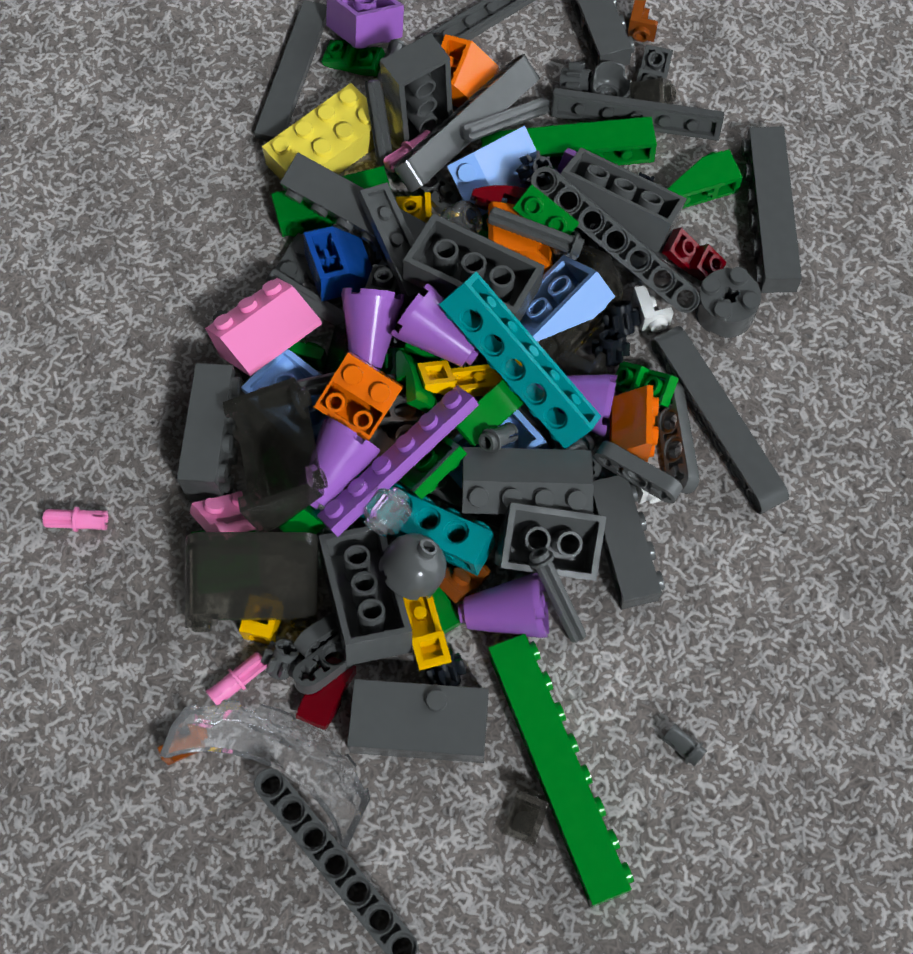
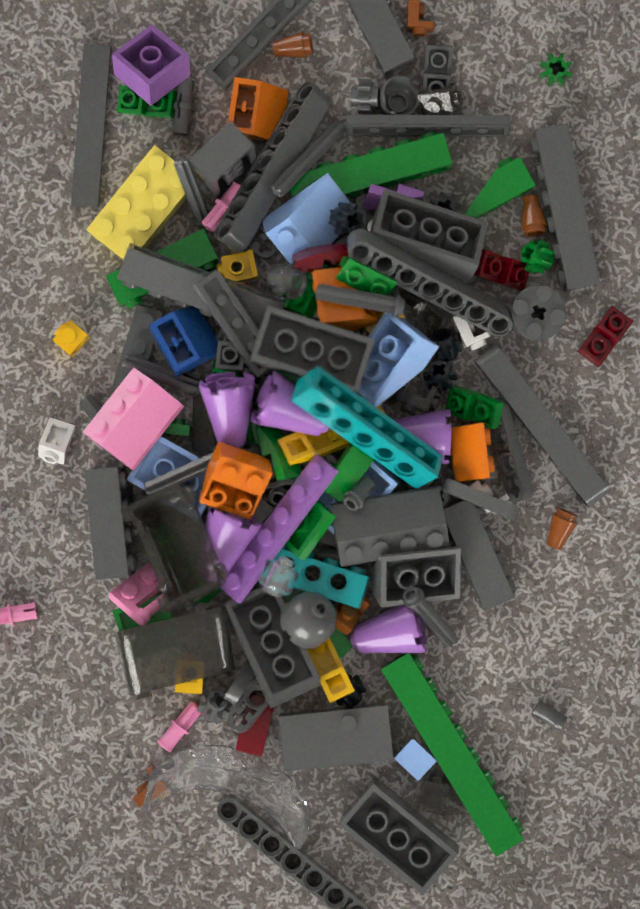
camera: 15 degrees left, 20 degrees up
(176, 348) = (55, 441): none -> white bracket
(218, 244) = (70, 338): none -> yellow brick
(474, 857) = (399, 835): none -> dark grey brick
(510, 765) = (415, 759): none -> light blue panel
(512, 29) = (296, 46): none -> dark orange cone
(727, 528) = (561, 527): none -> dark orange cone
(735, 215) = (533, 219): none -> dark orange cone
(735, 248) = (537, 256): none -> green gear
(776, 84) = (562, 68): none -> green gear
(800, 341) = (605, 336): none -> dark red slope

